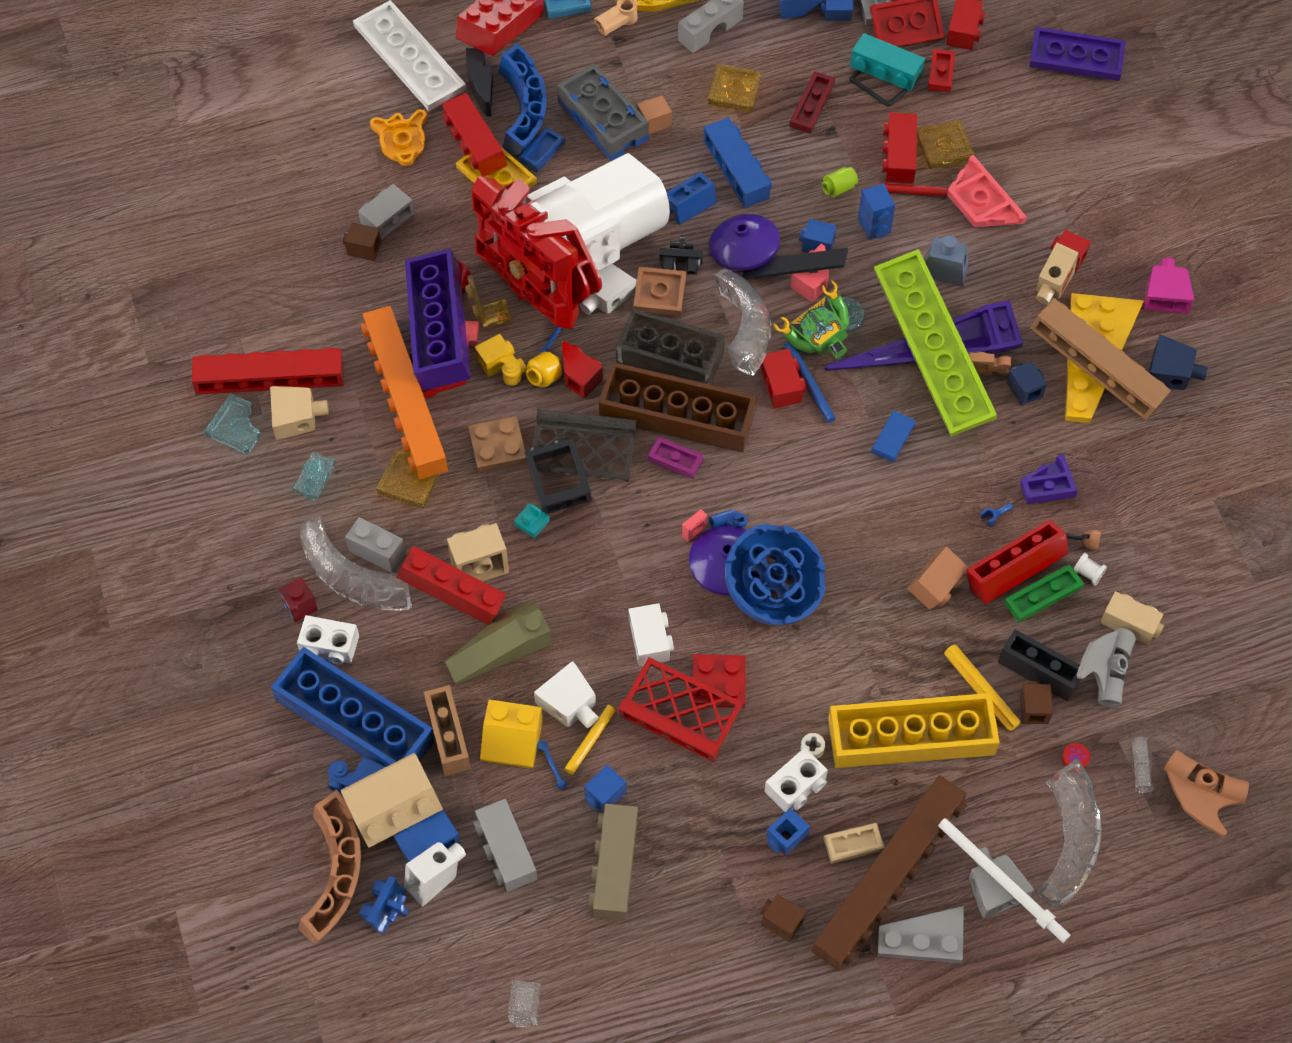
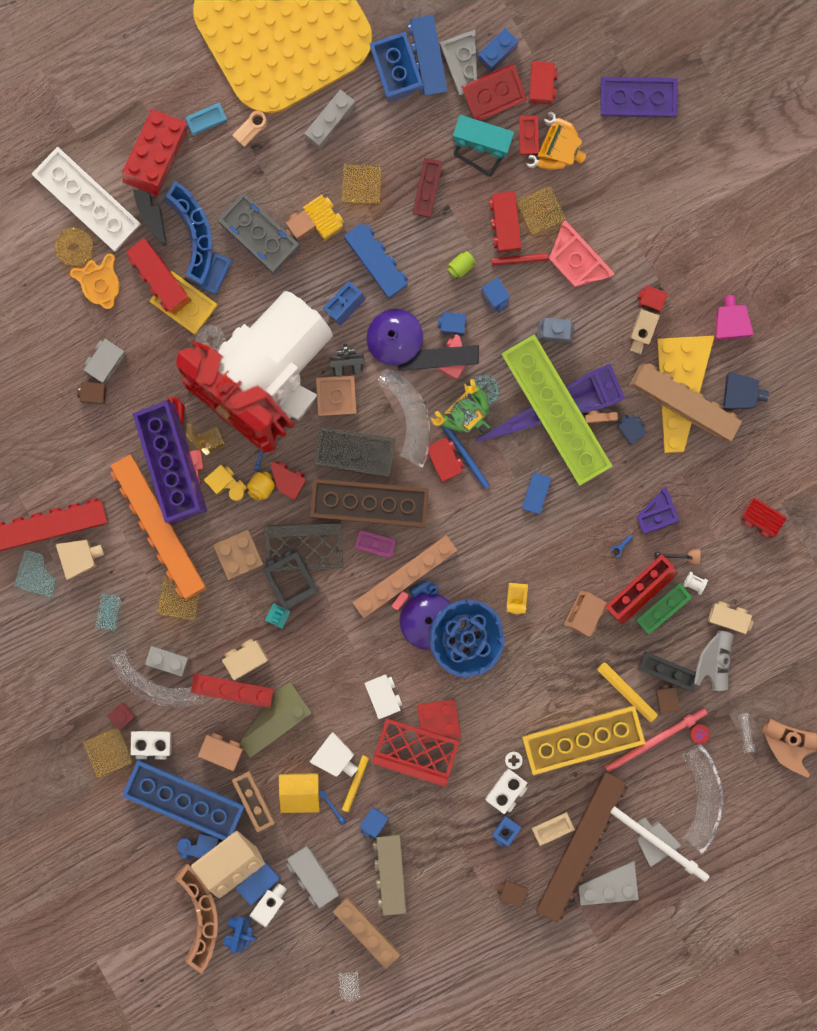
camera: 10 degrees left, 25 degrees up
(267, 642) = (108, 752): none -> clear yellow plate
(383, 108) = (65, 240): none -> clear yellow plate
(417, 662) = (220, 751): none -> nougat brick
(565, 932) = (366, 932): none -> medium nougat brick
(686, 114) = (324, 218): none -> yellow brick
(710, 495) = (405, 576): none -> nougat brick
(849, 547) = (517, 598): none -> yellow bracket
(975, 84) = (559, 146): none -> light orange torso
(1061, 738) = (689, 721): none -> coral bar
(1188, 508) = (763, 518): none -> red brick

